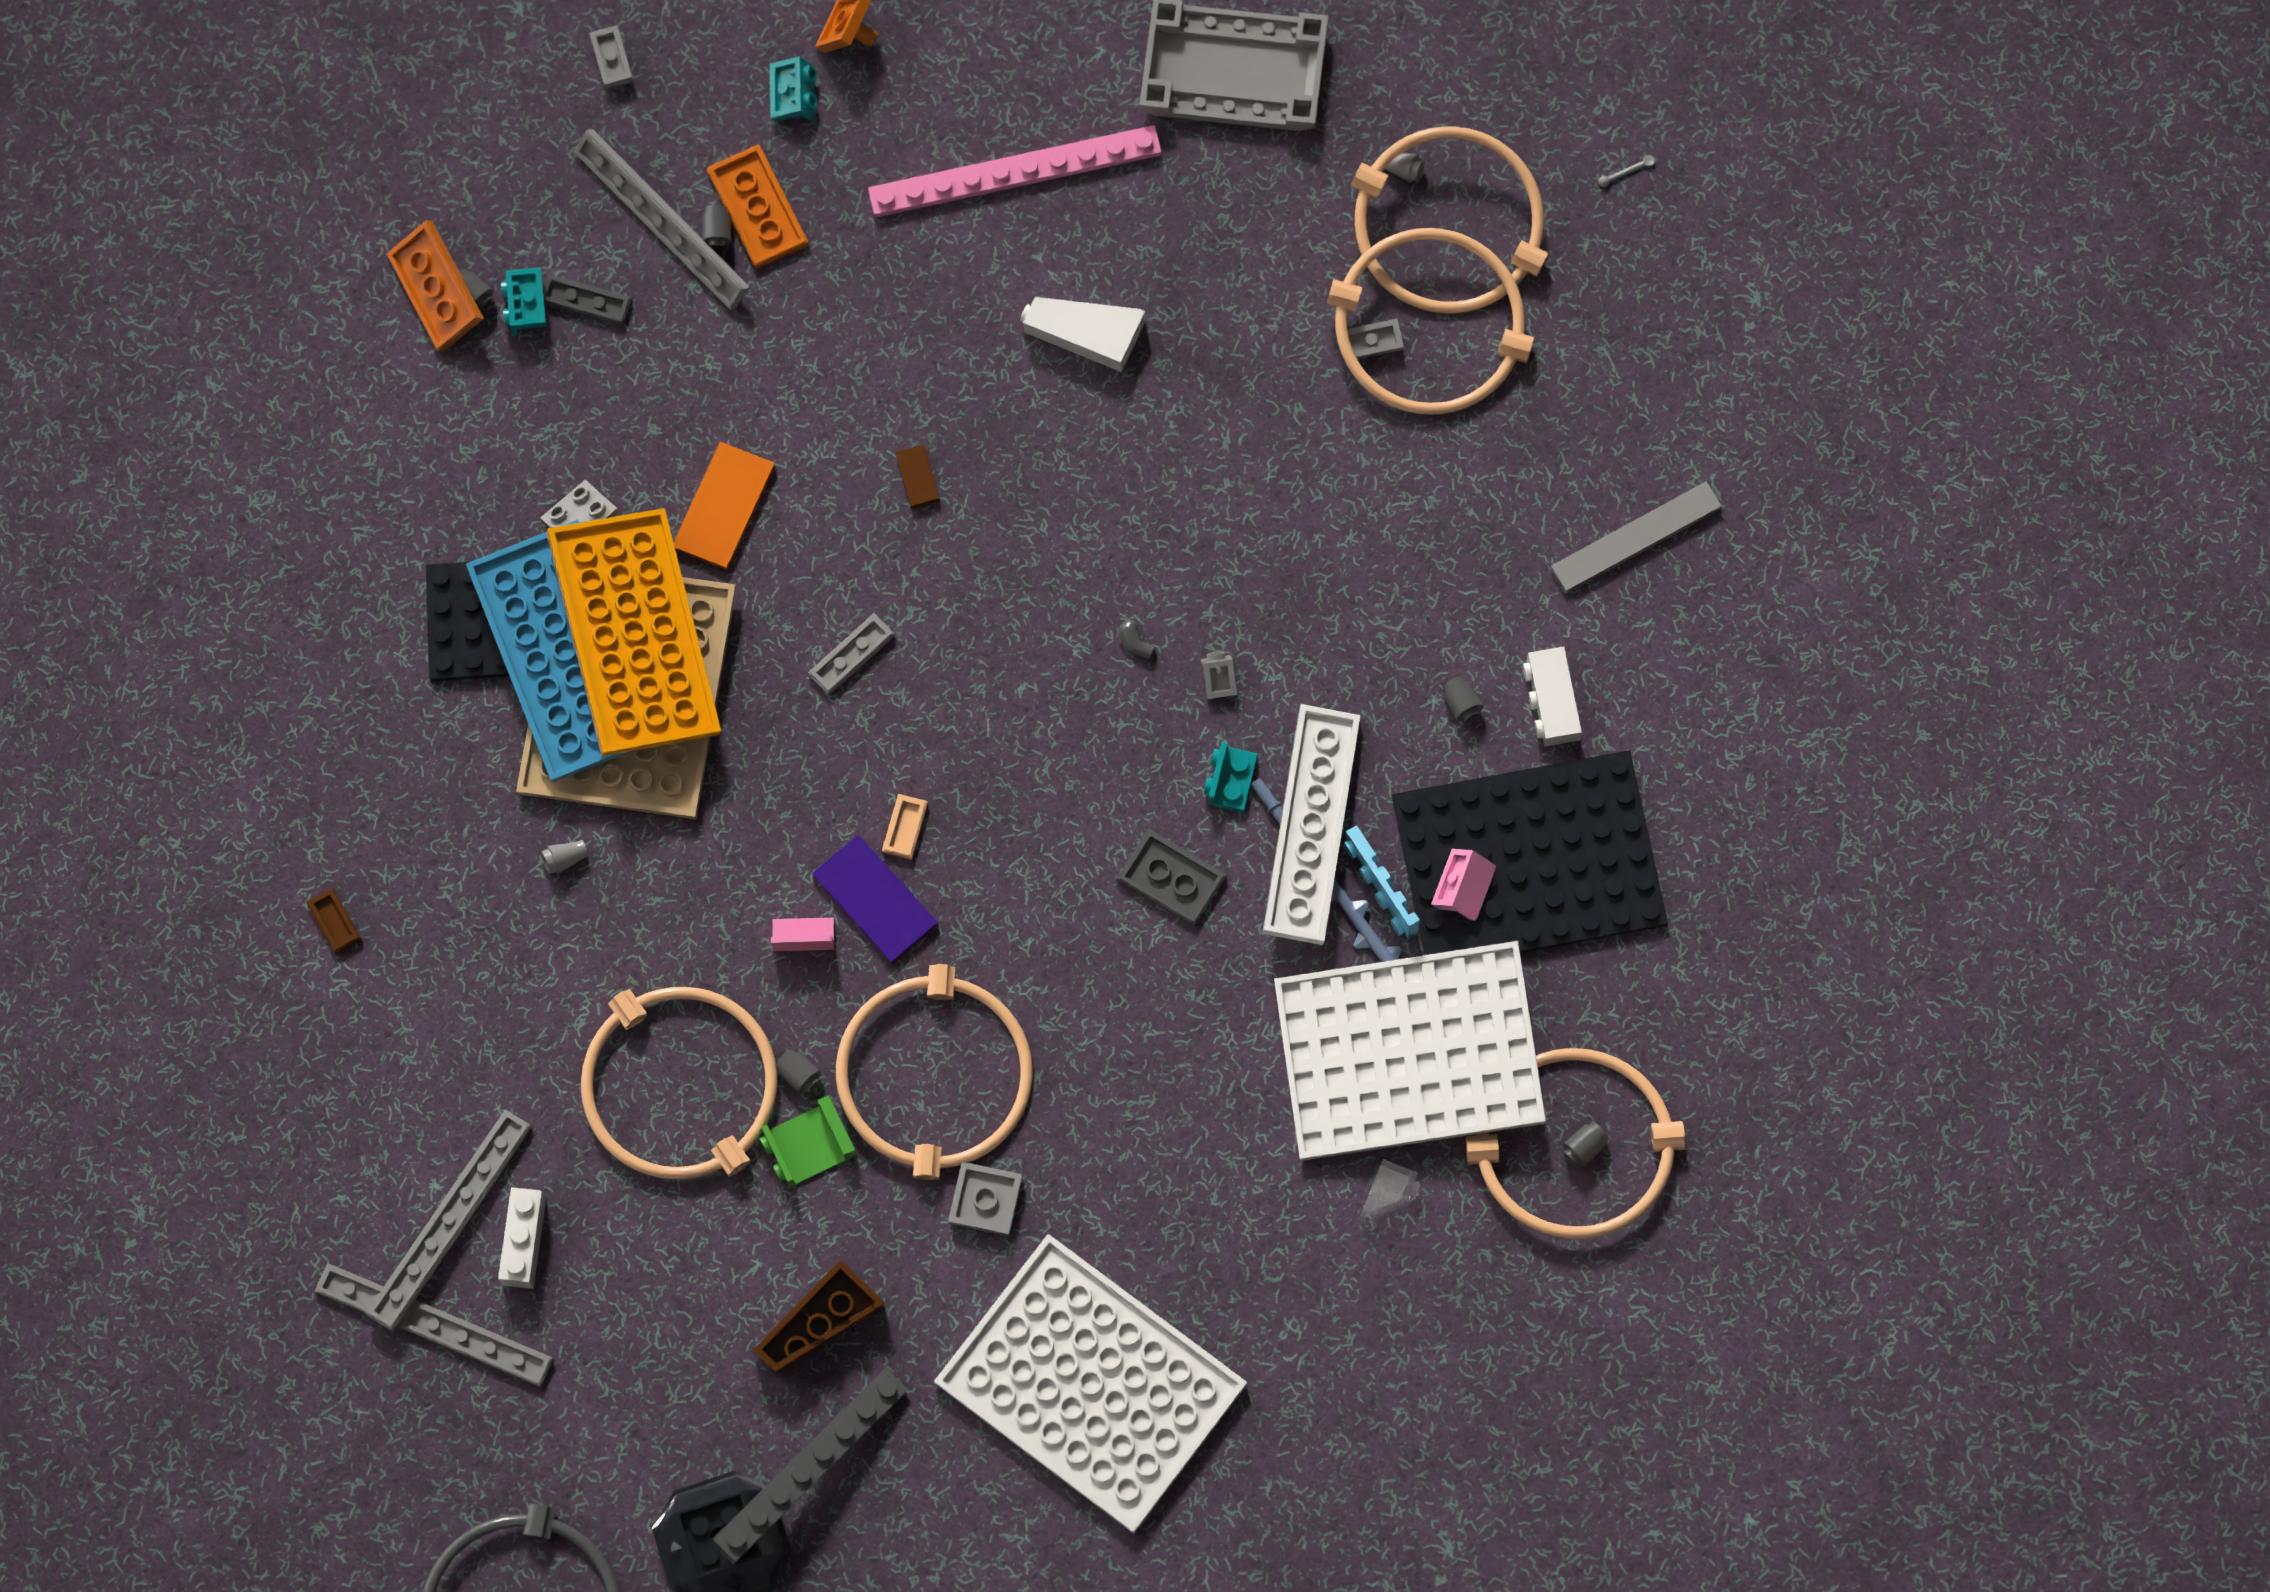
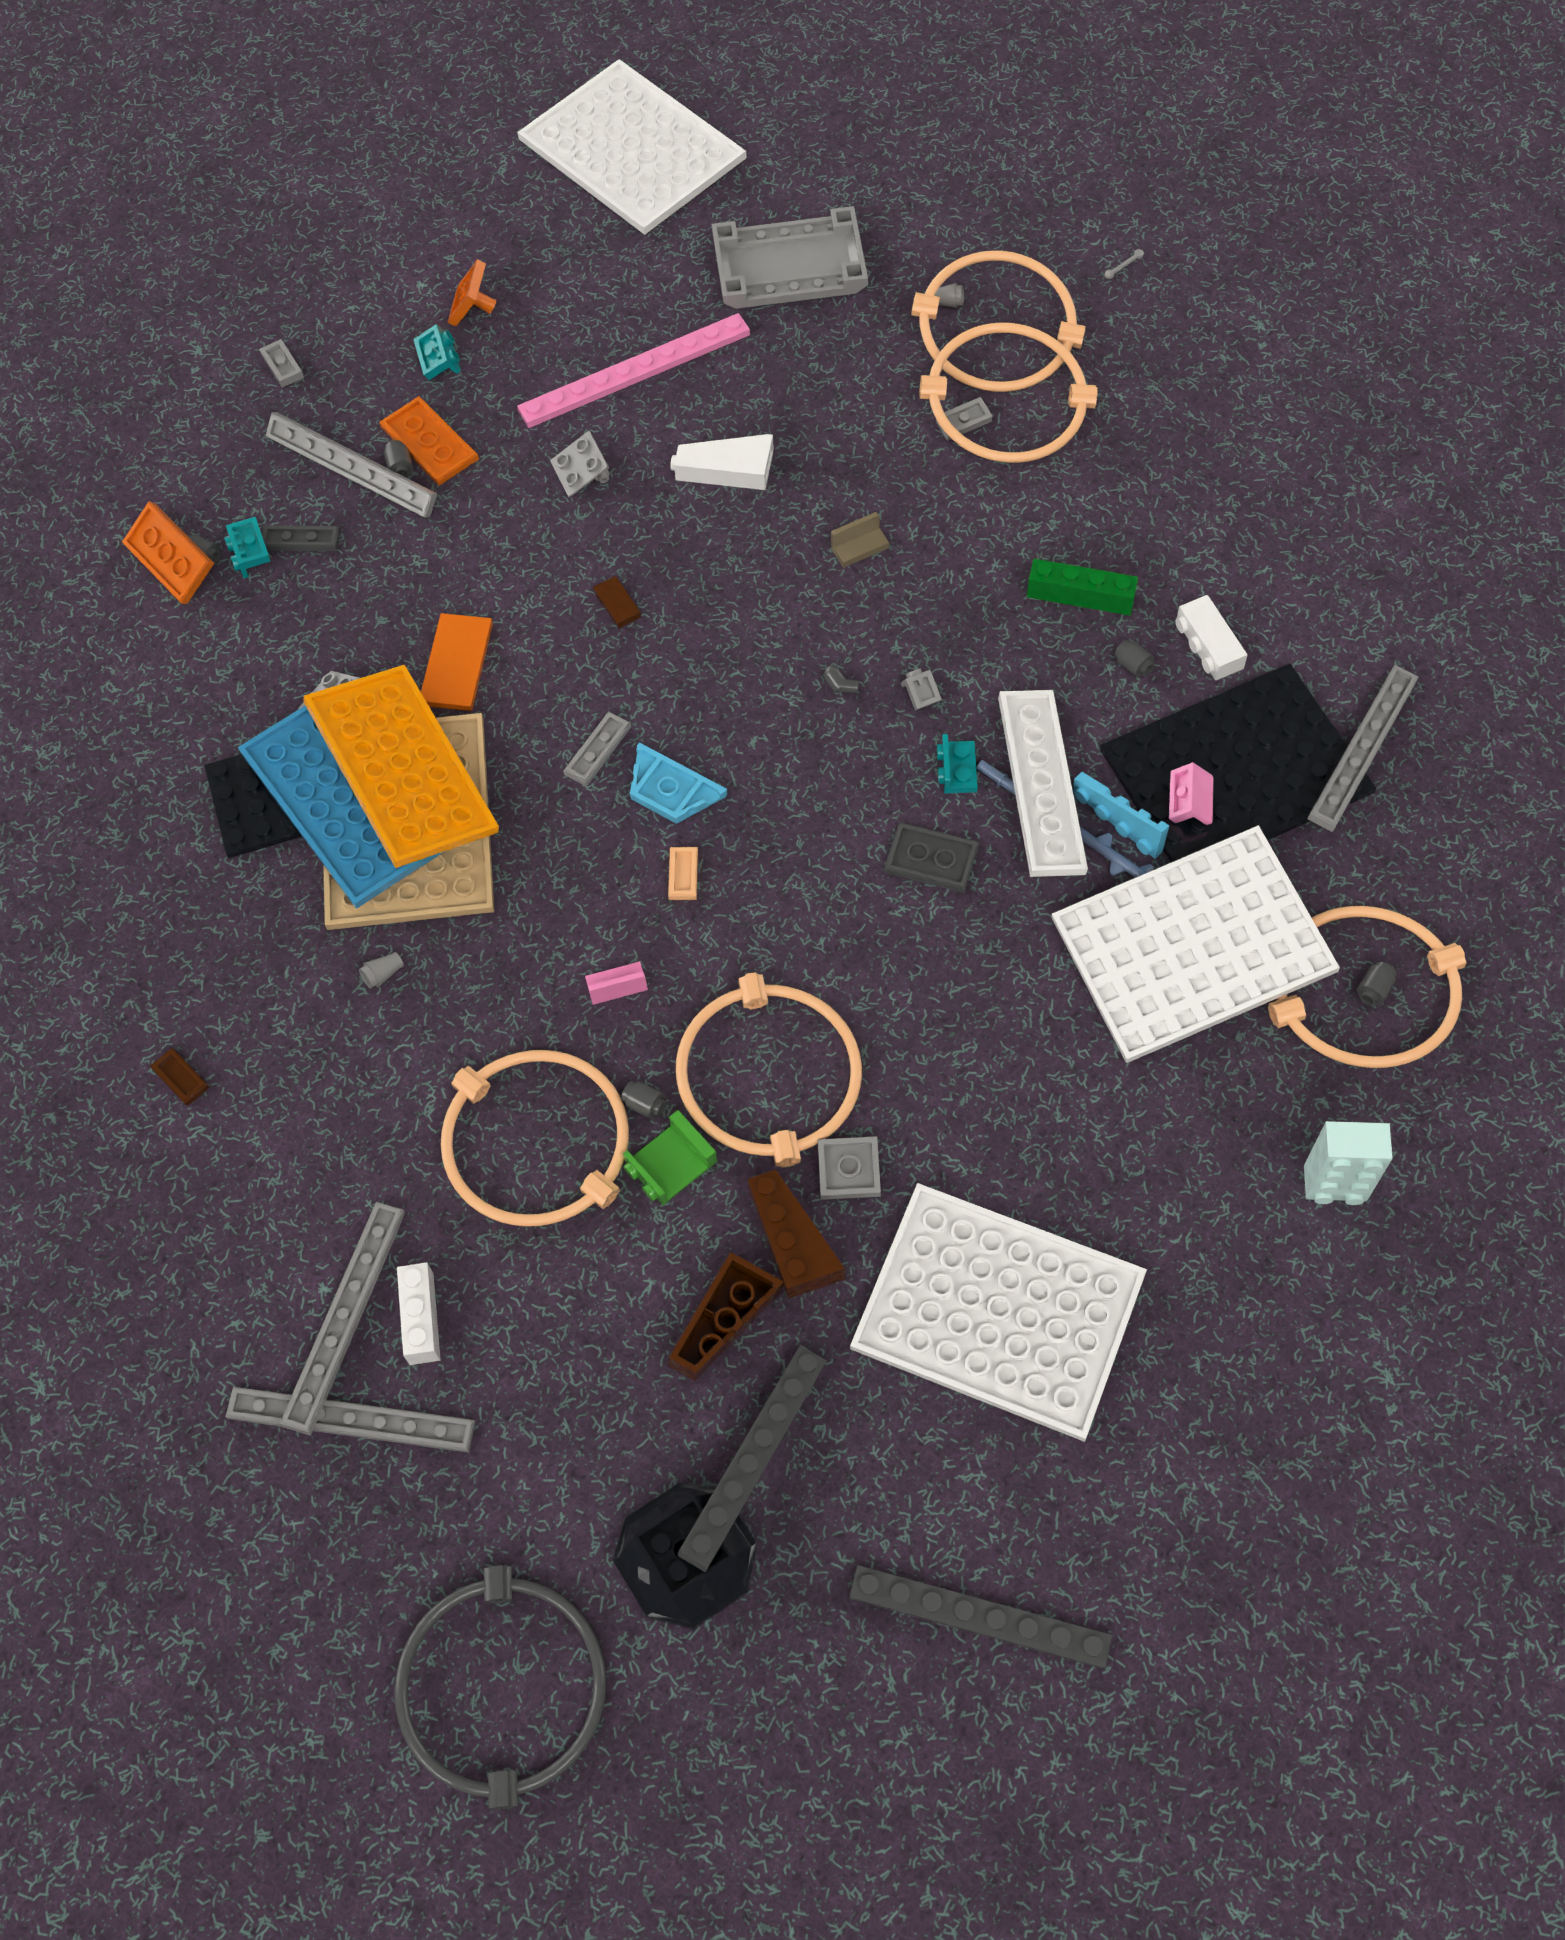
camera: 15 degrees left, 10 degrees down
(875, 899) = (673, 938): dark purple tile -> none
(908, 1265) = (796, 1245): none -> reddish brown wedge
(916, 722) = (671, 787): none -> medium azure wing
(920, 287) = (580, 464): none -> light grey hinge
(1205, 471) = (858, 540): none -> dark tan panel
(1390, 1191) = (1218, 1066): clear slope -> none
(1432, 597) = (1082, 587): none -> green brick
(1470, 1332) = (1347, 1162): none -> light aqua brick
(1636, 537) = (1231, 509): light grey tile -> none
(1669, 873) = (1362, 748): none -> light grey tile

